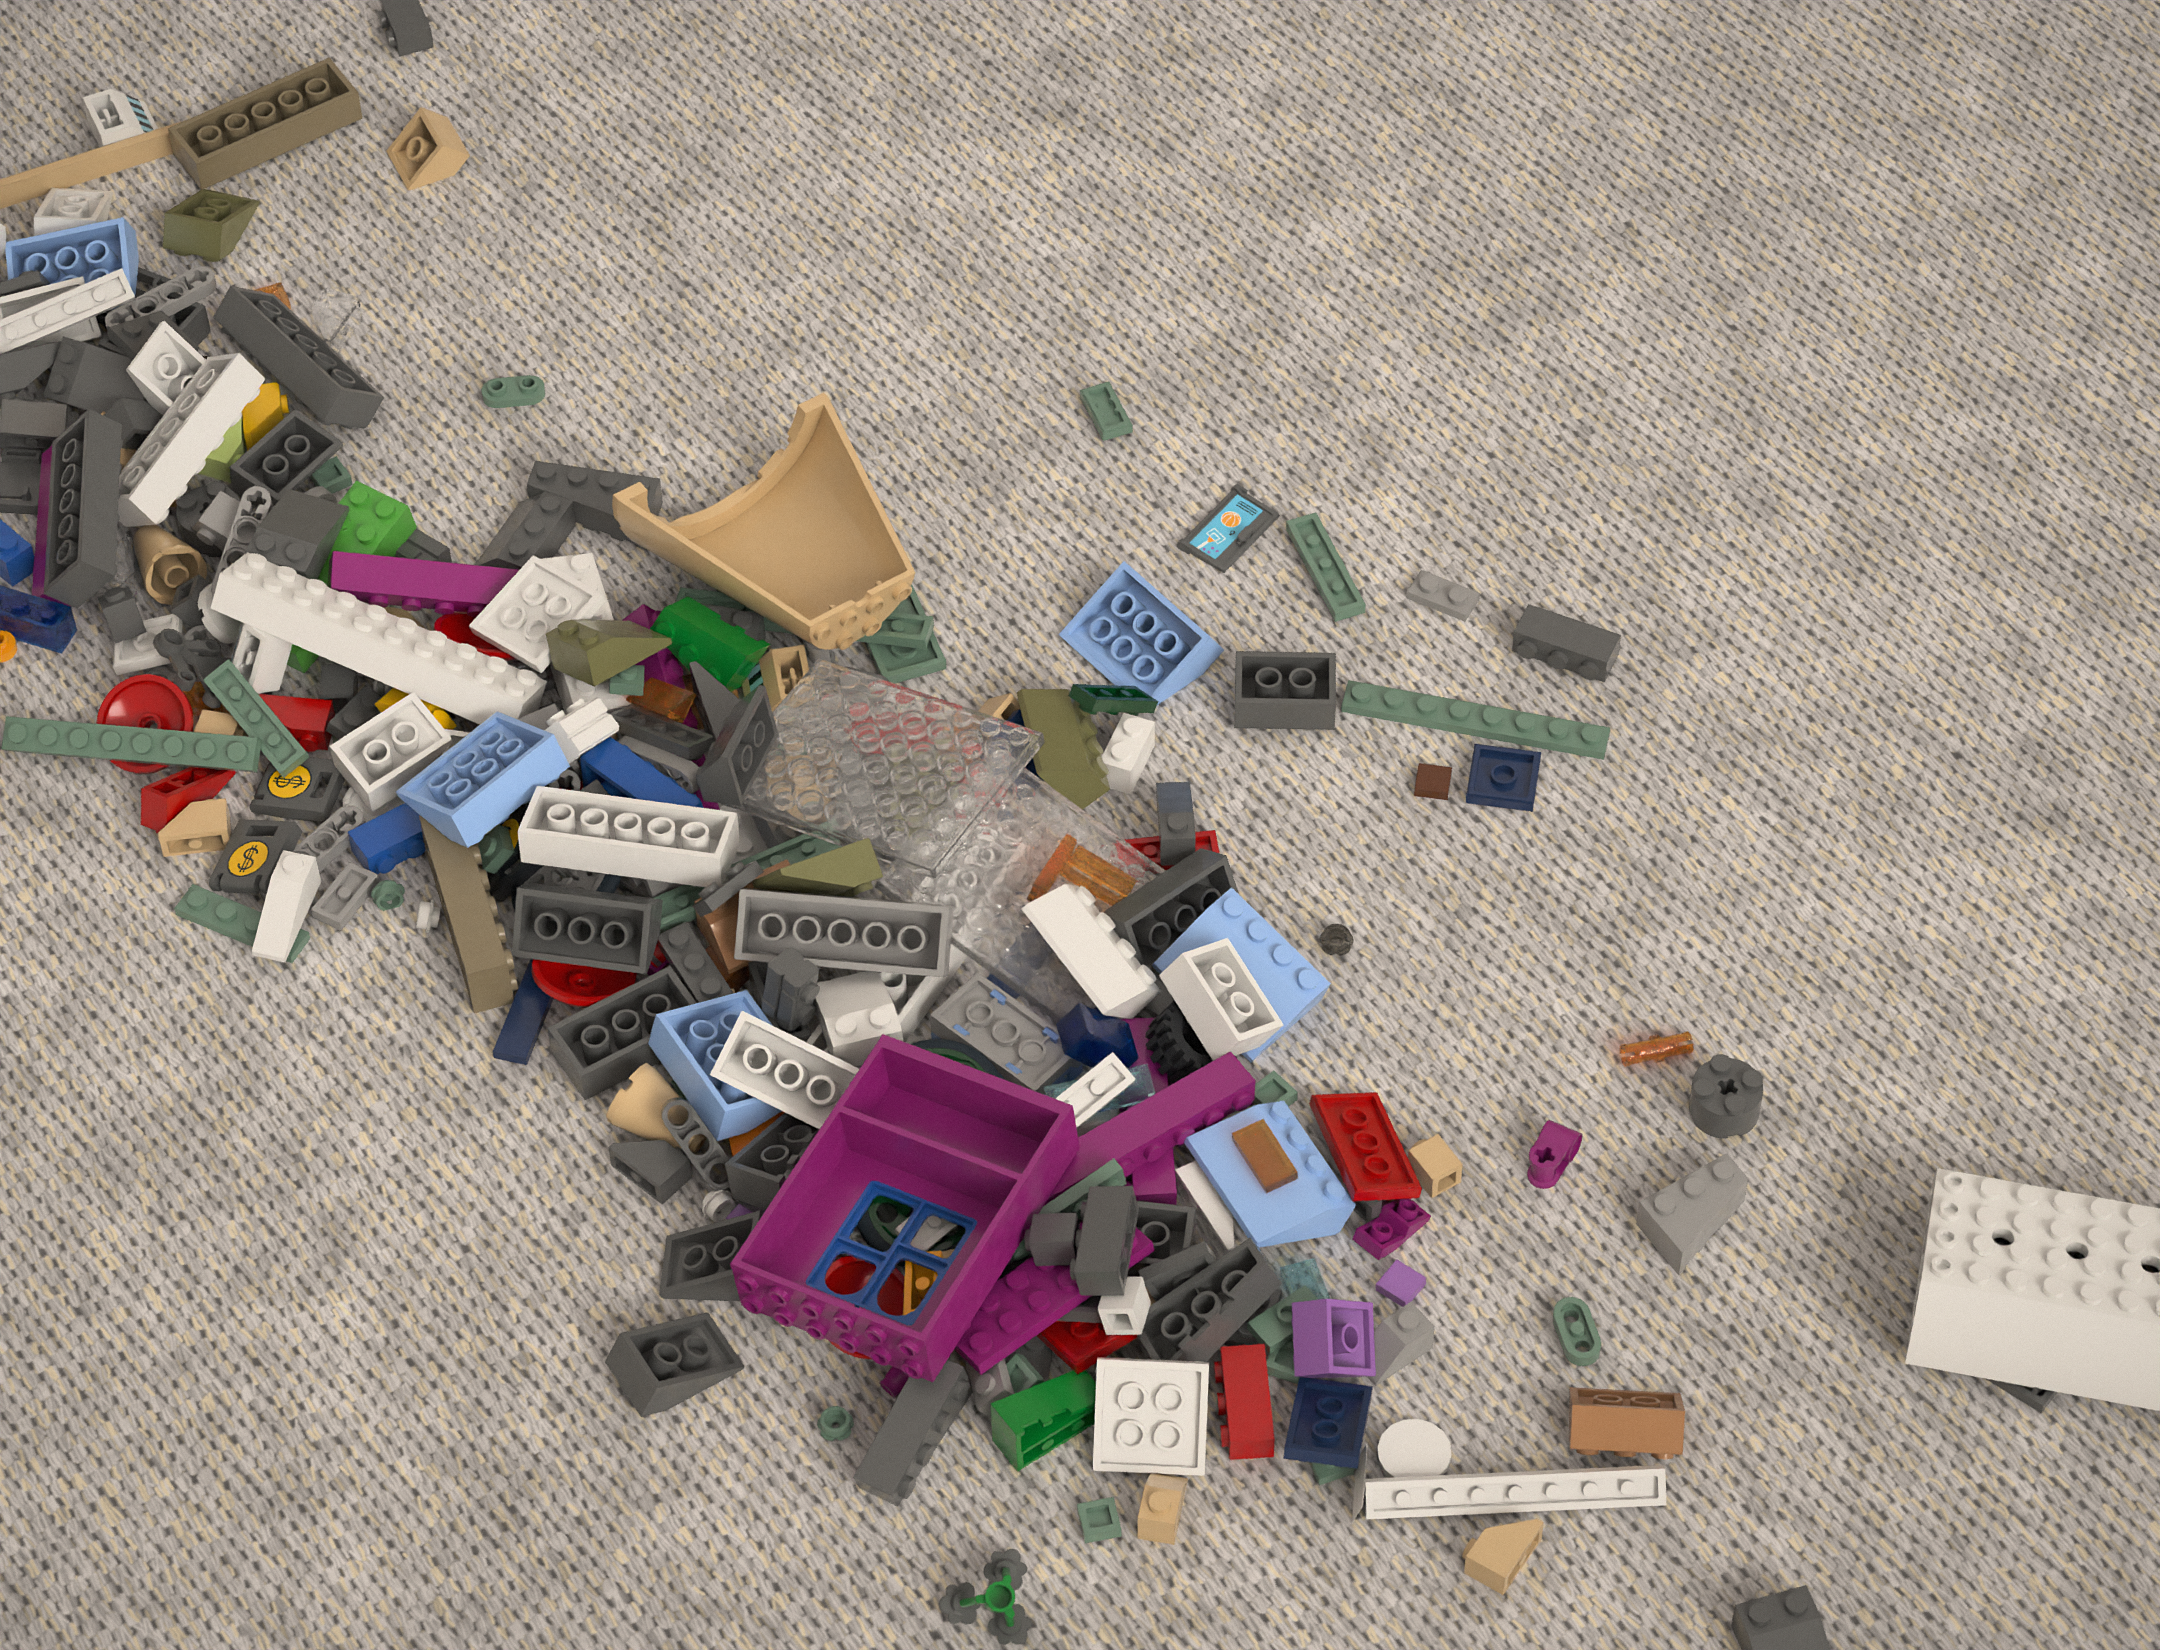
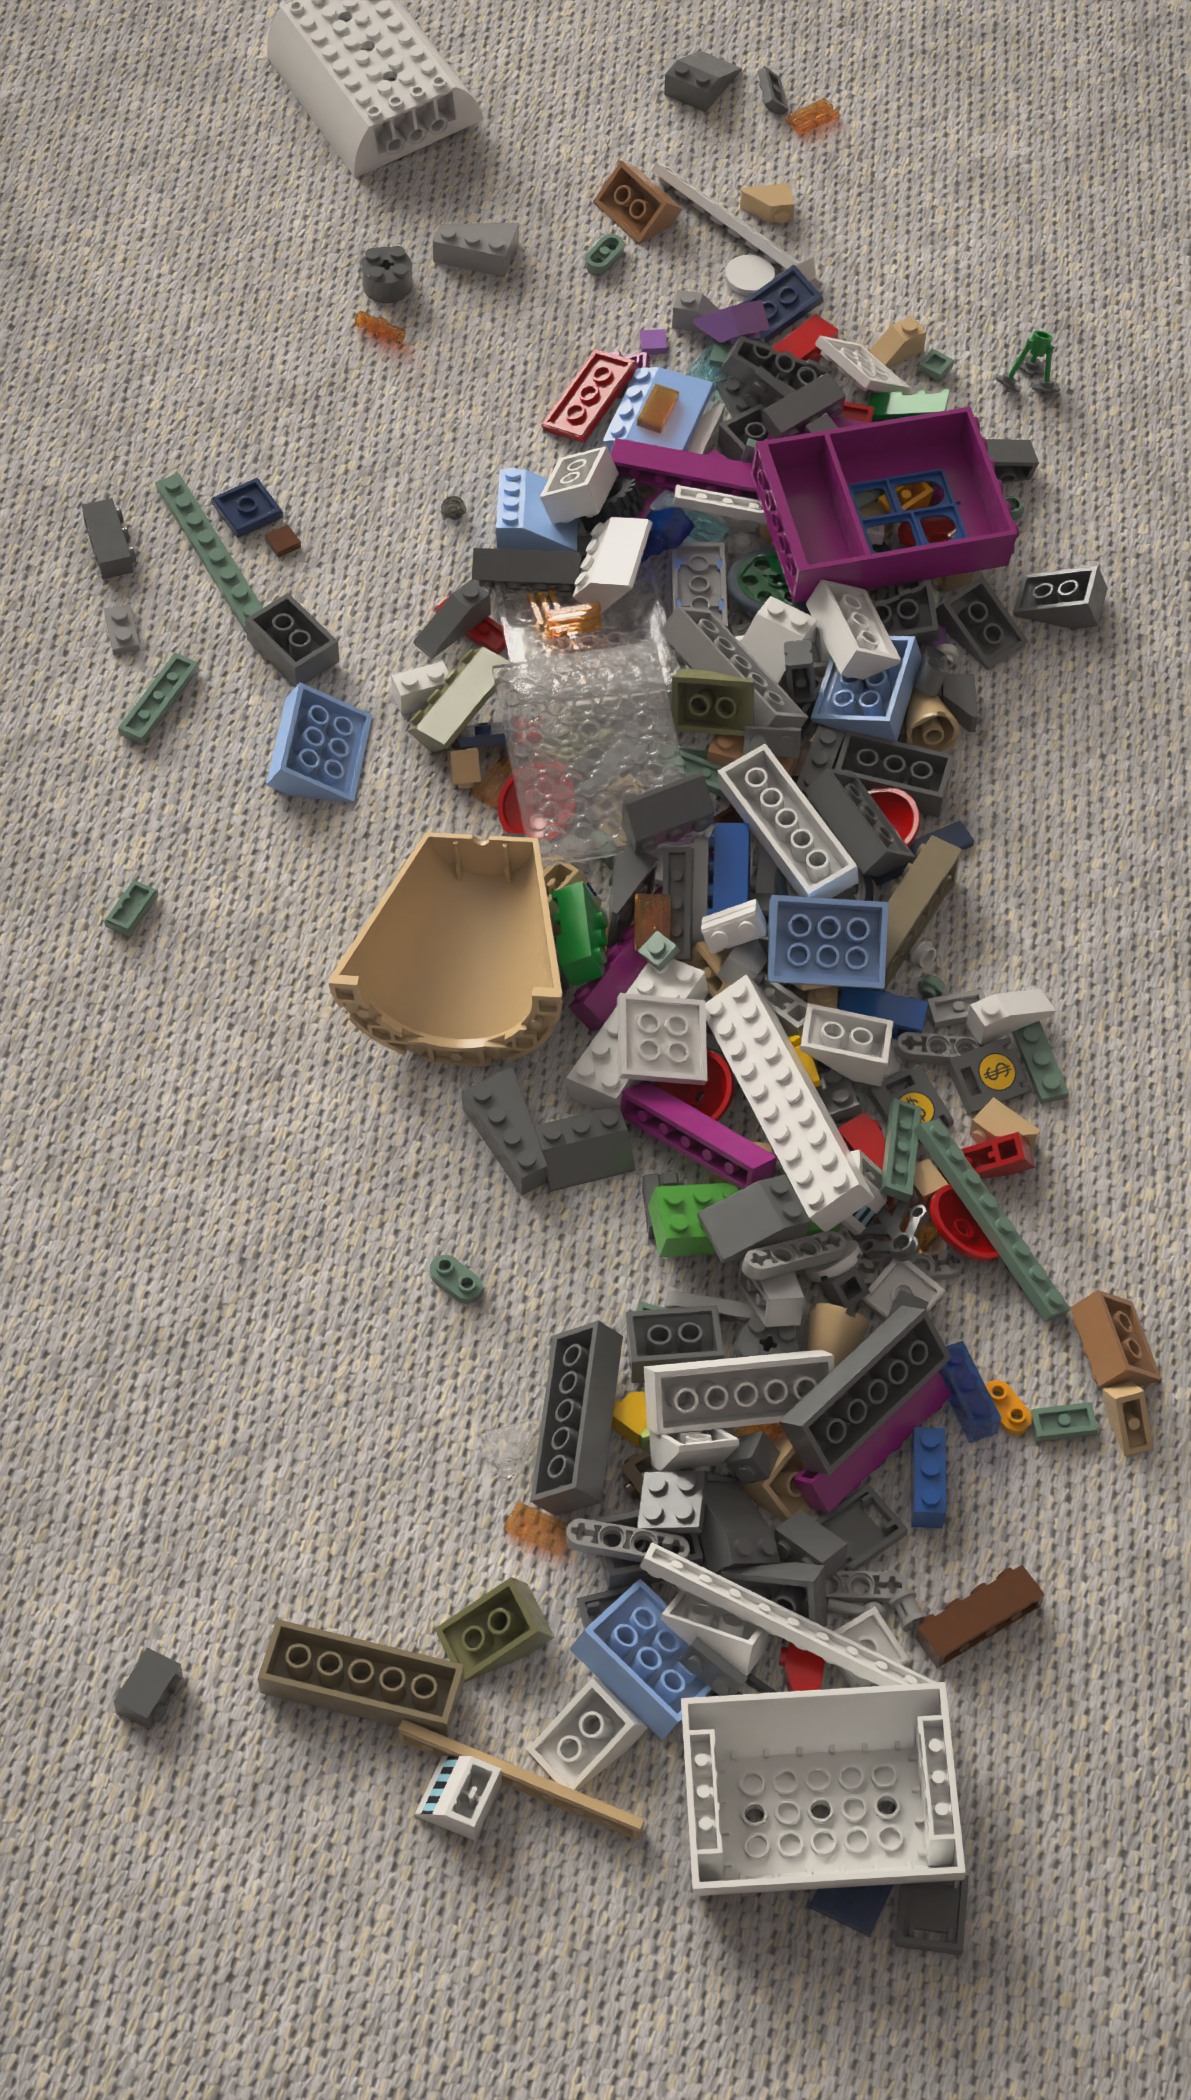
camera: 135 degrees left, 5 degrees up
(427, 150) = (277, 1541): tan slope -> none
(601, 648) = (651, 965): olive slope -> none
(1112, 699) = (397, 703): dark green plate -> none
(1232, 520) = (154, 777): door -> none
(1435, 1165) = (565, 365): tan brick -> none
(1552, 1154) = (499, 325): magenta piece -> none

